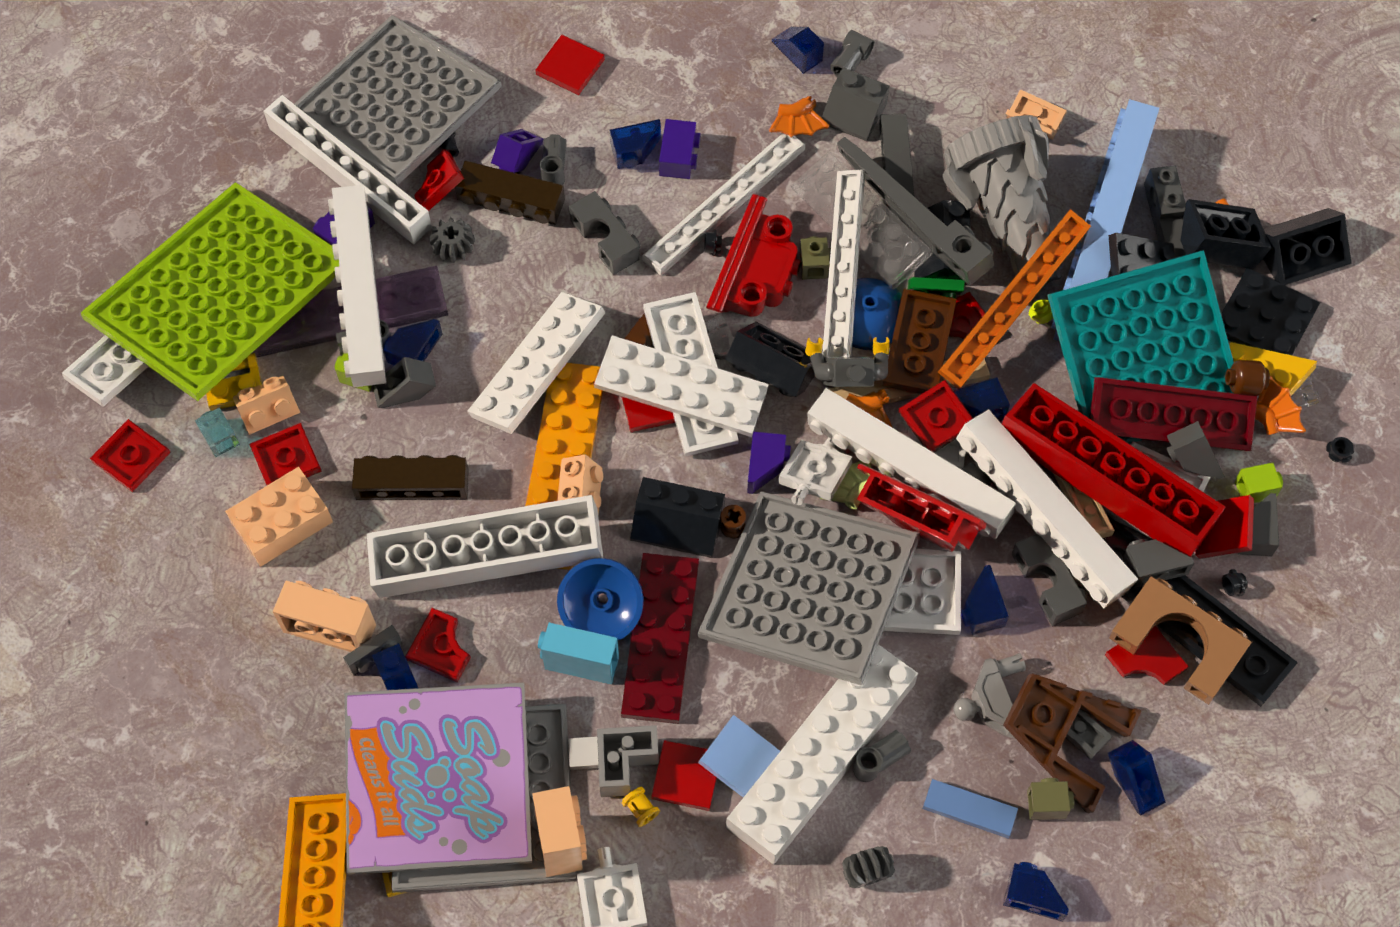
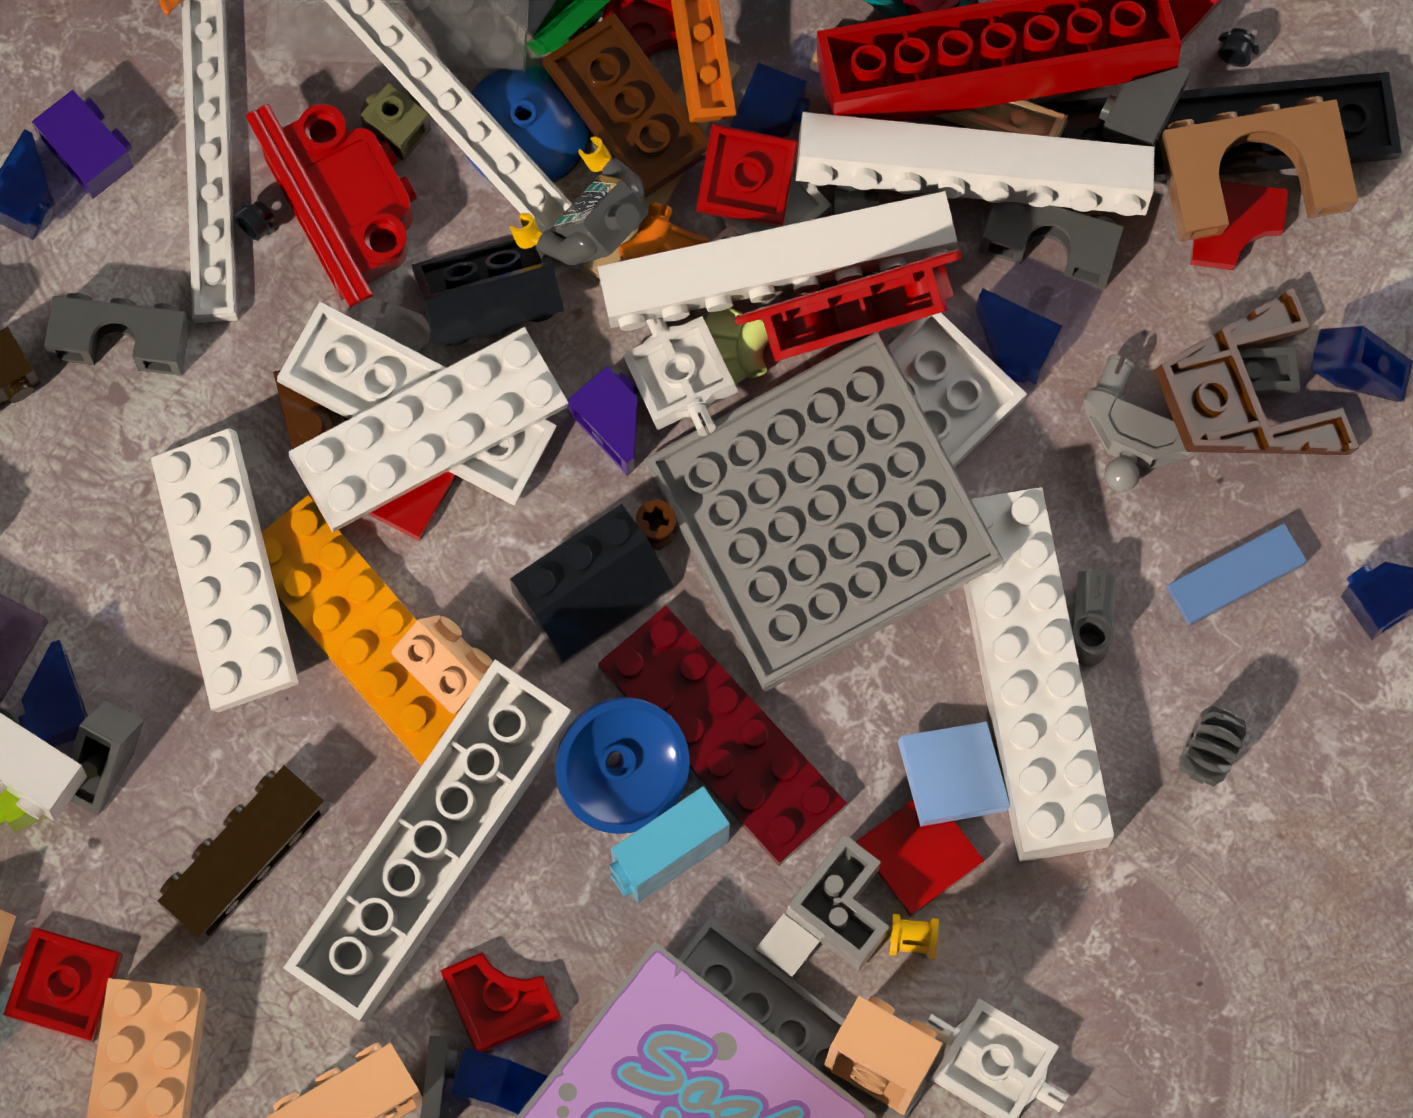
camera: 50 degrees left, 10 degrees up
(1049, 799) = (1307, 481): olive brick -> none

